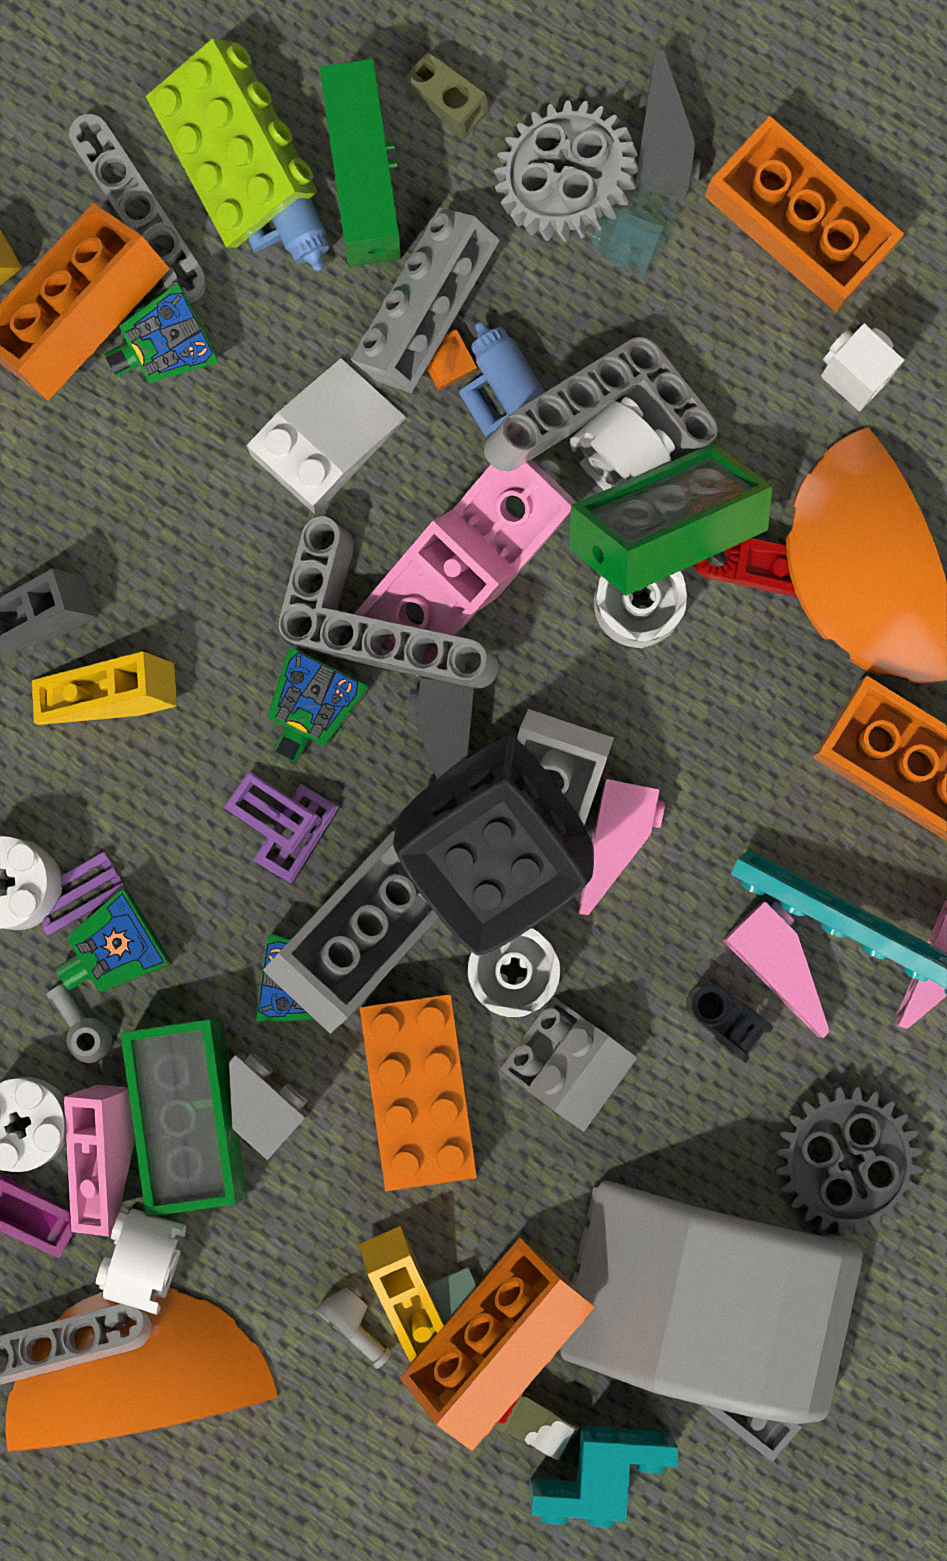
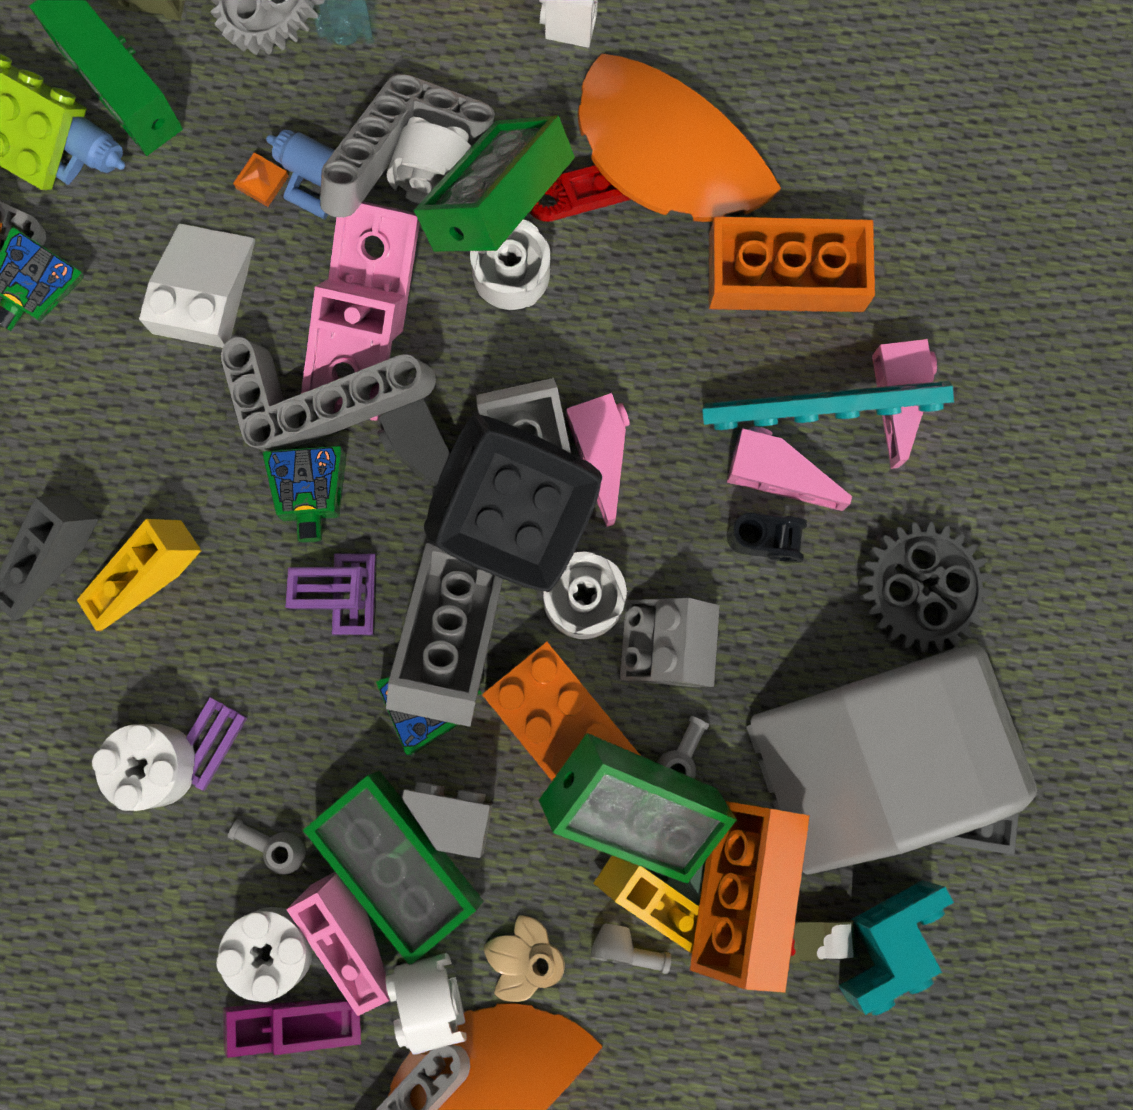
camera: 30 degrees left, 5 degrees down
(113, 947) = (259, 767): torso -> none
(245, 1272) = (517, 958): none -> tan plate
(425, 299) = (216, 140): light grey brick -> none
(437, 1204) = (636, 809): none -> brick
(513, 1178) = (686, 748): none -> light grey bar

